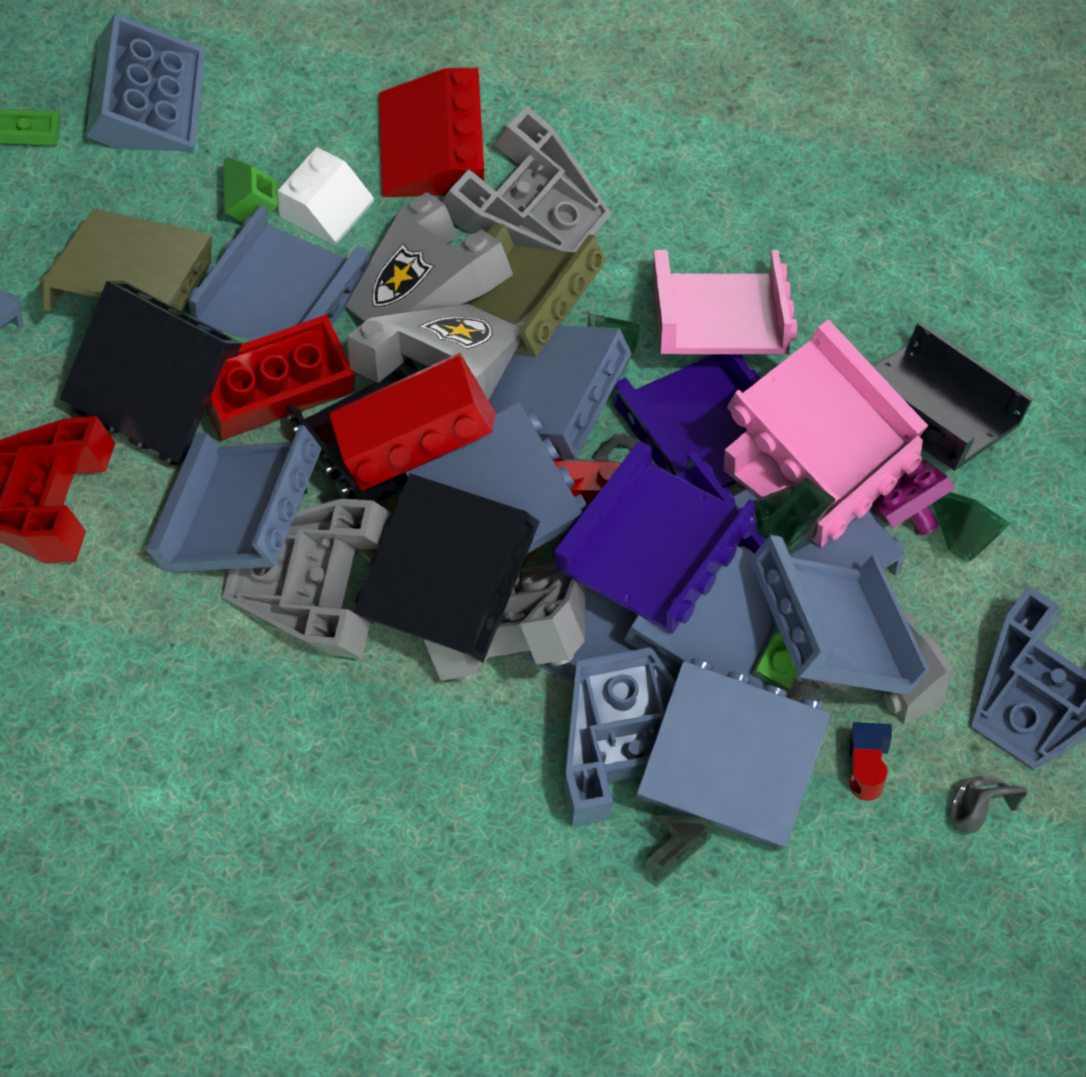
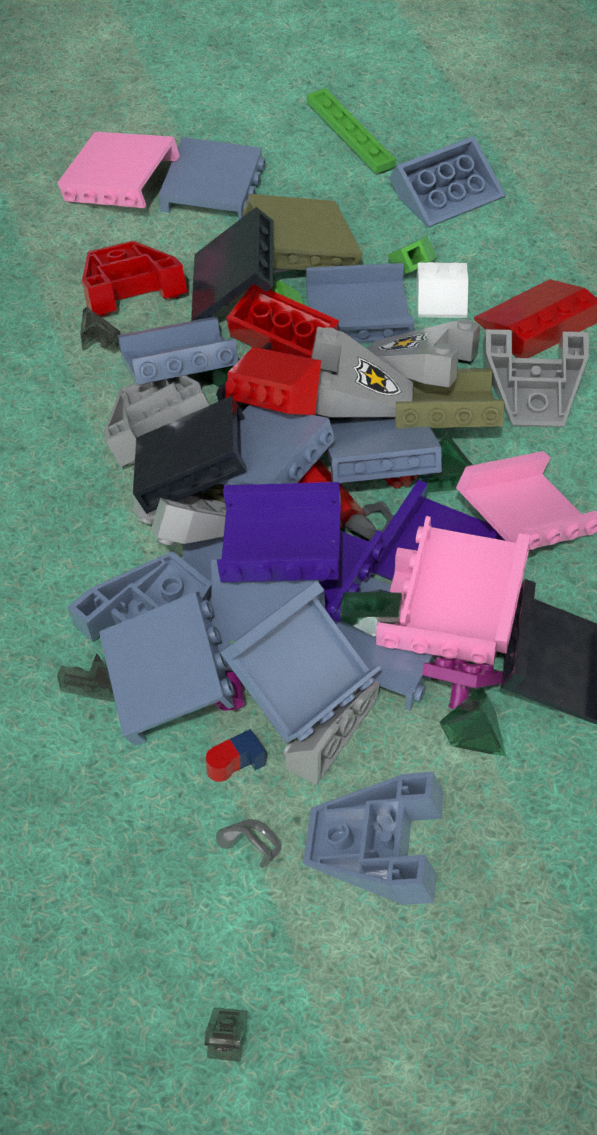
camera: 60 degrees right, 5 degrees down
(101, 568) = (96, 329): none -> clear smoke slope

